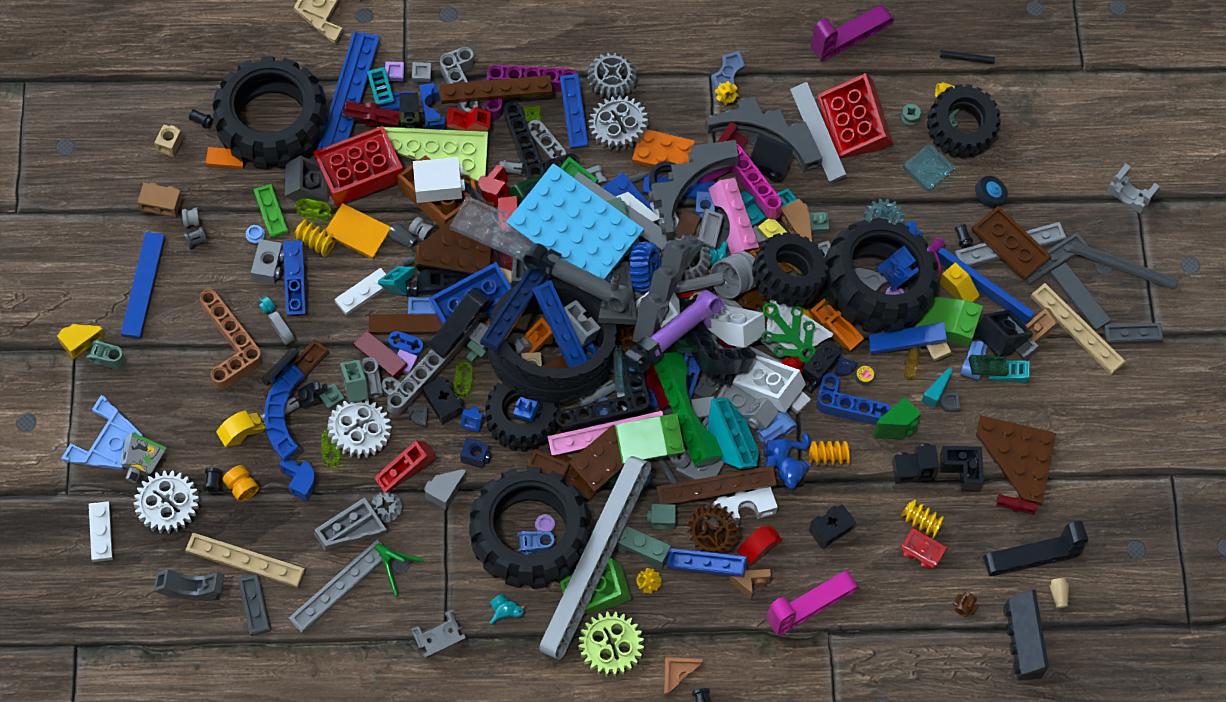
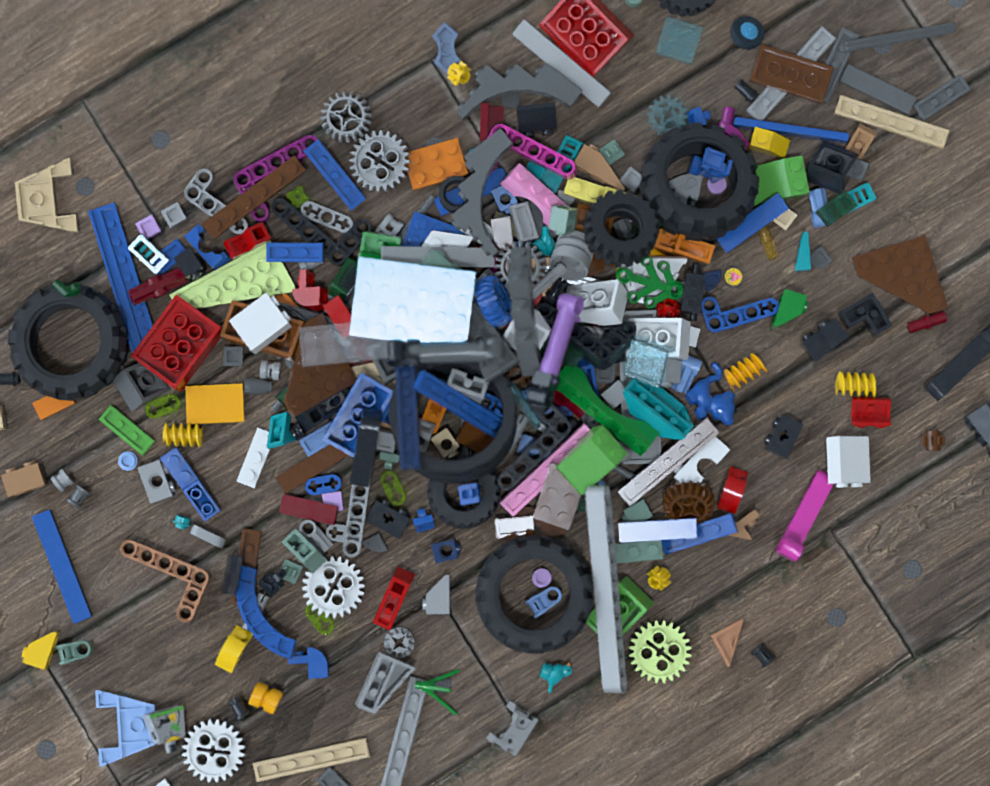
camera: 20 degrees left, 20 degrees up
(295, 65) = (67, 291): none -> dark green arm
(397, 202) = (233, 356): none -> dark grey plate
(502, 149) = (294, 252): none -> blue tile
(672, 535) = (657, 530): none -> tile
(744, 237) = (563, 219): none -> brick
(747, 391) = (646, 362): none -> clear light blue plate
(878, 575) = (848, 460): none -> white brick

